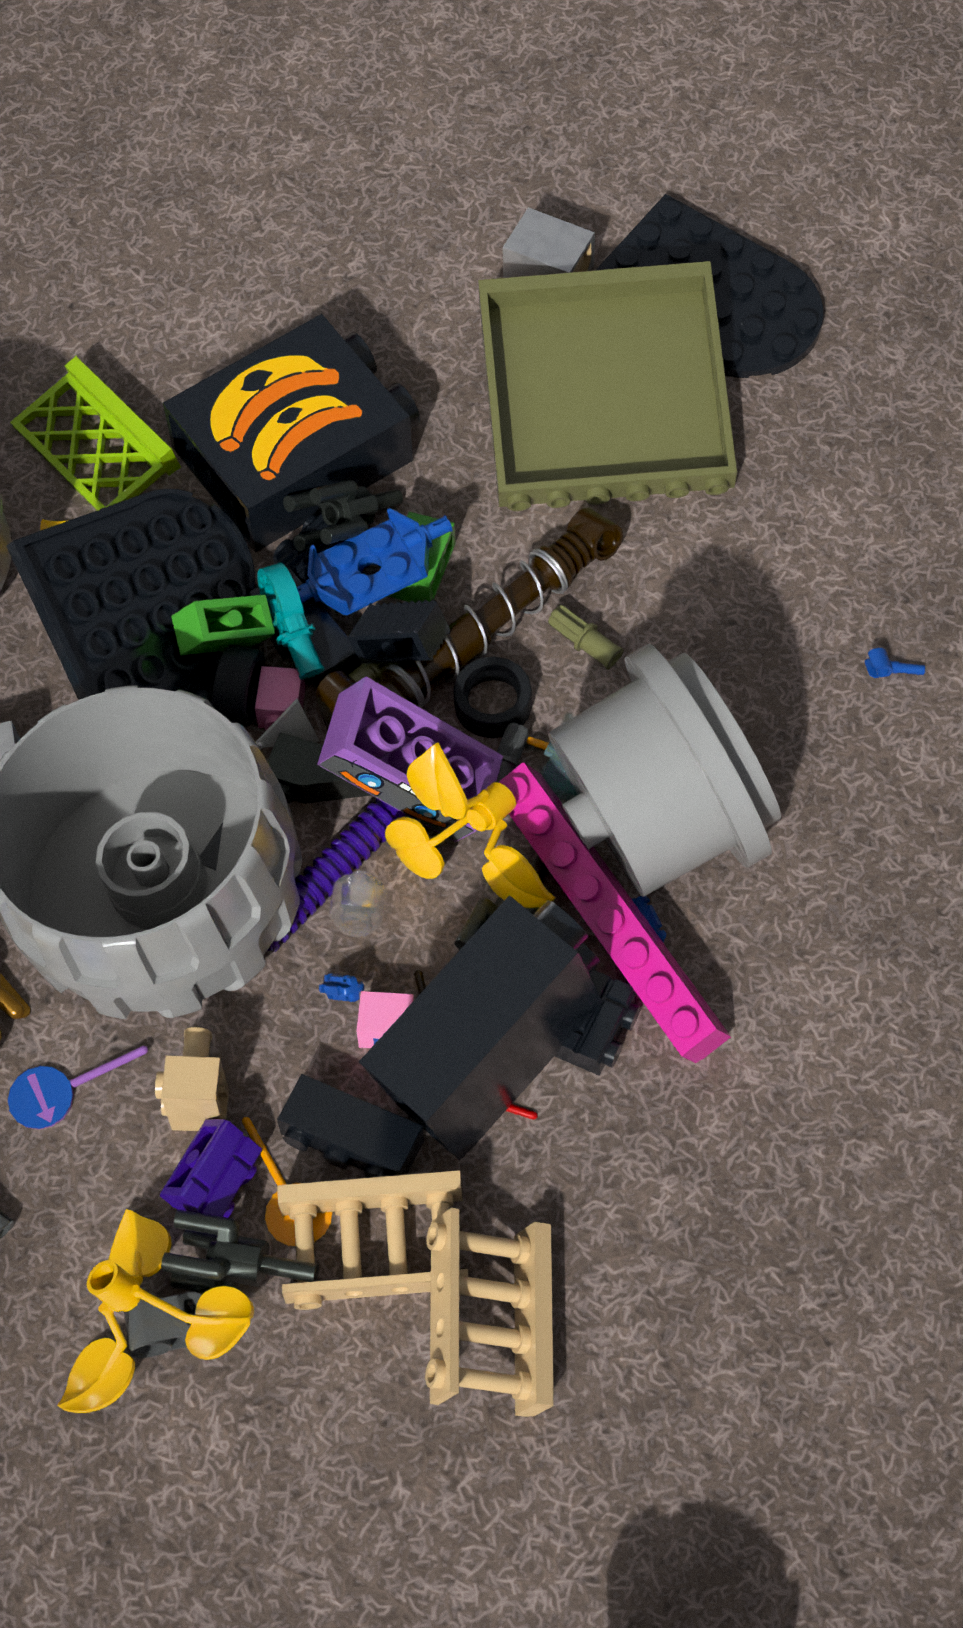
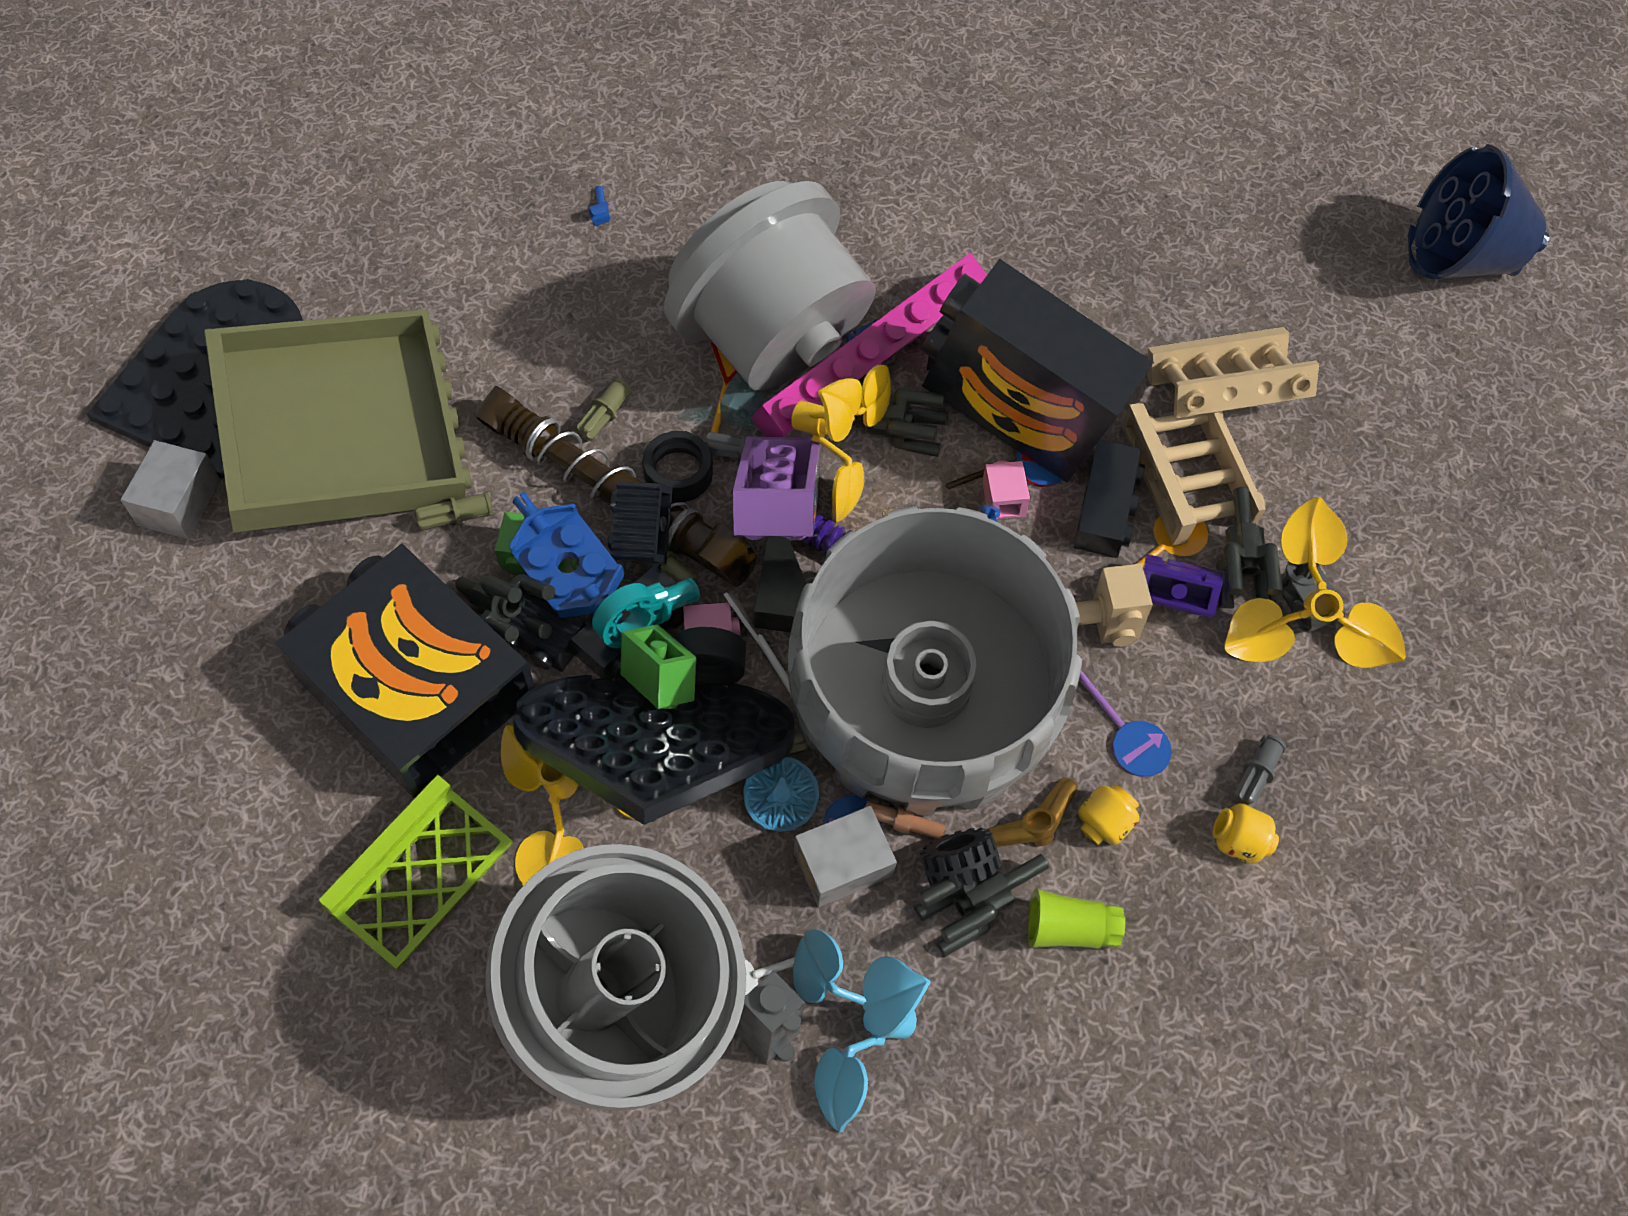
camera: 105 degrees left, 0 degrees up
(481, 492) = (454, 511): none -> olive axle

